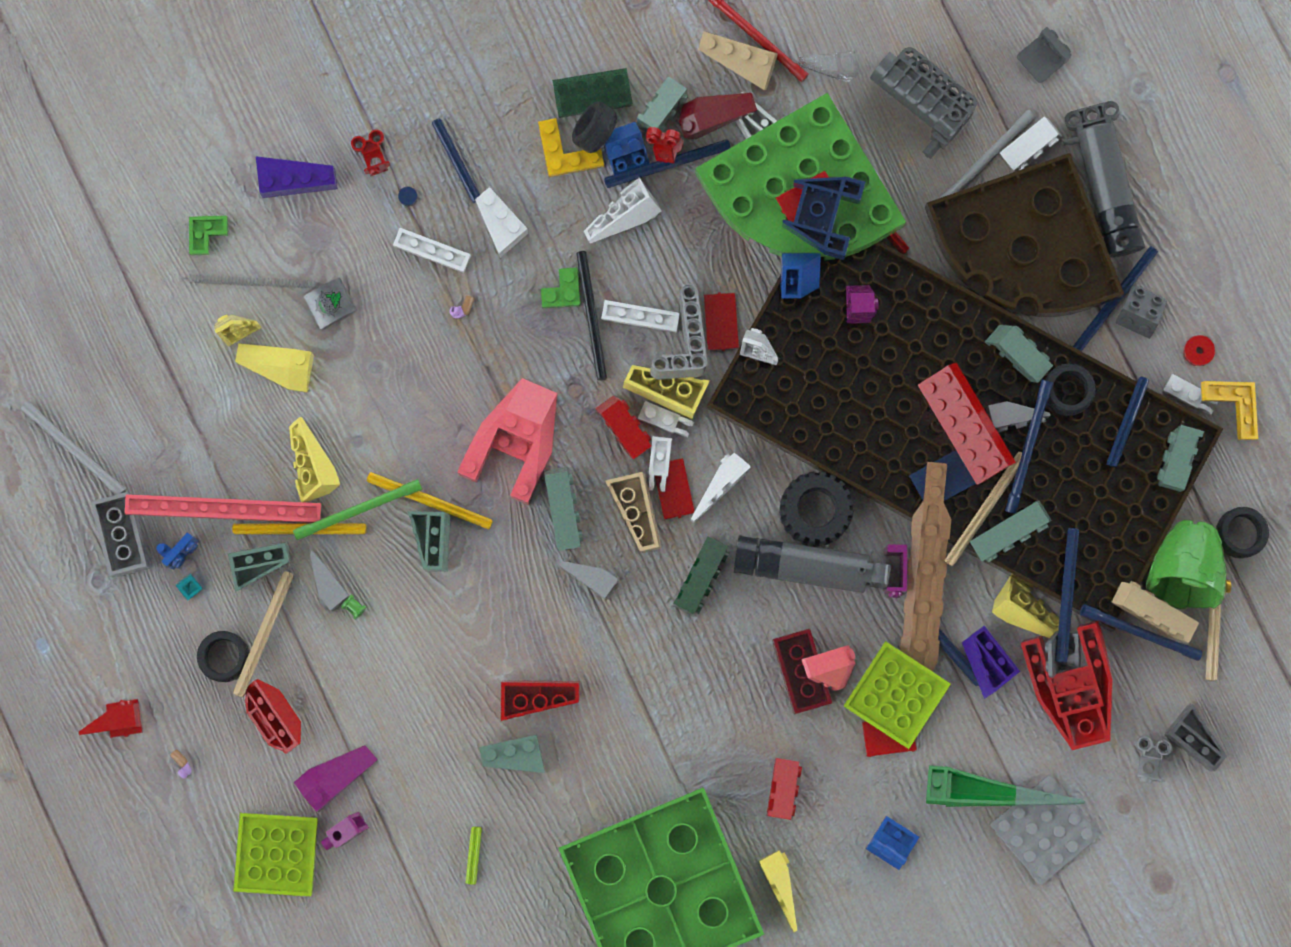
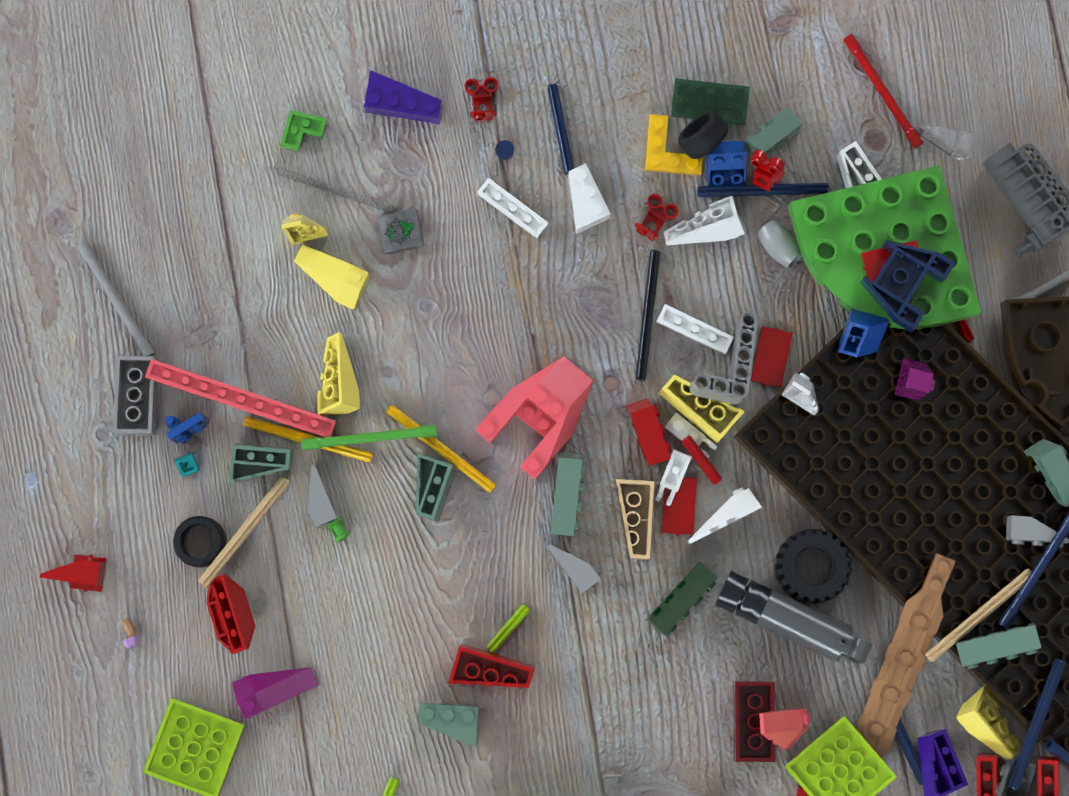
camera: 15 degrees right, 0 degrees up
(349, 829) = (266, 746): magenta torso -> none
(463, 310) = (526, 274): arm -> none
(543, 653) = (508, 628): none -> lime axle
(567, 294) = (627, 288): bright green plate -> none
(574, 217) = (656, 214): none -> red piece
(682, 439) = (701, 459): none -> red axle
(698, 210) = (780, 243): none -> light grey piece
(714, 112) = (822, 153): dark red wedge -> none
(746, 60) = (863, 108): tan wedge -> none
(898, 550) = (882, 646): magenta panel -> none
(957, 476) = (962, 577): dark blue tile -> none
(966, 423) = (985, 527): brick -> none

